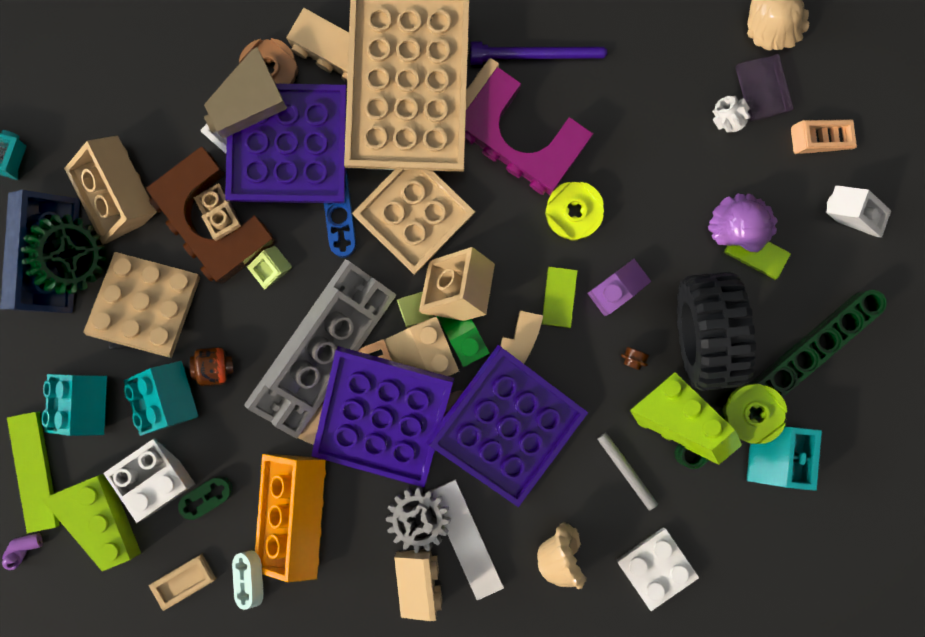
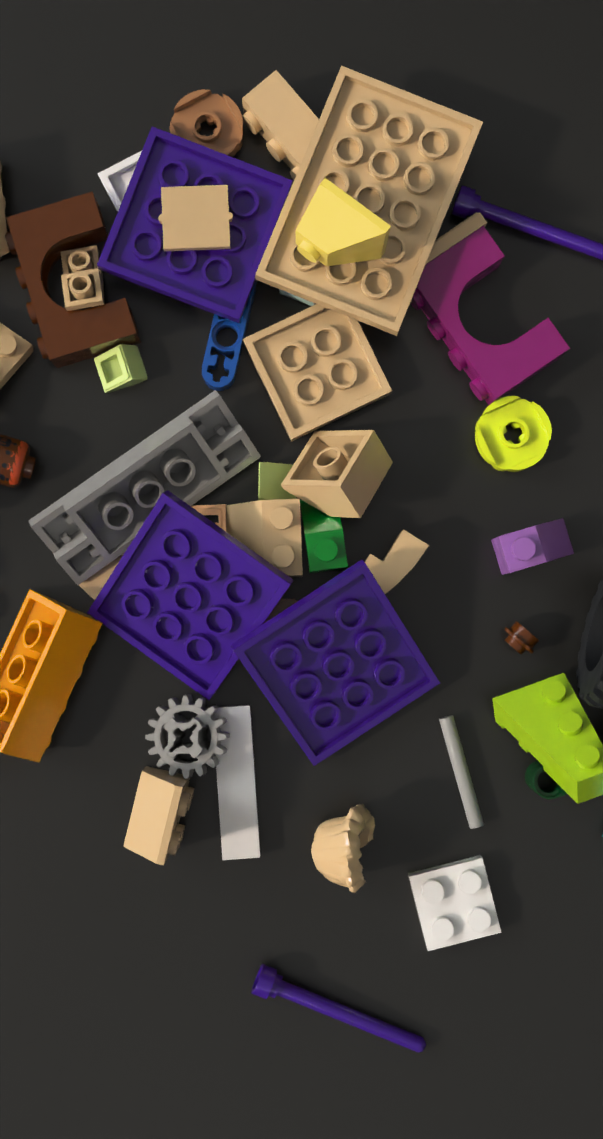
camera: 15 degrees right, 0 degrees up
(244, 97) = (164, 149): dark tan slope -> none
(285, 138) = (195, 218): none -> tan piece
(394, 112) = (340, 229): none -> light yellow slope
(559, 297) = (455, 531): lime tile -> none

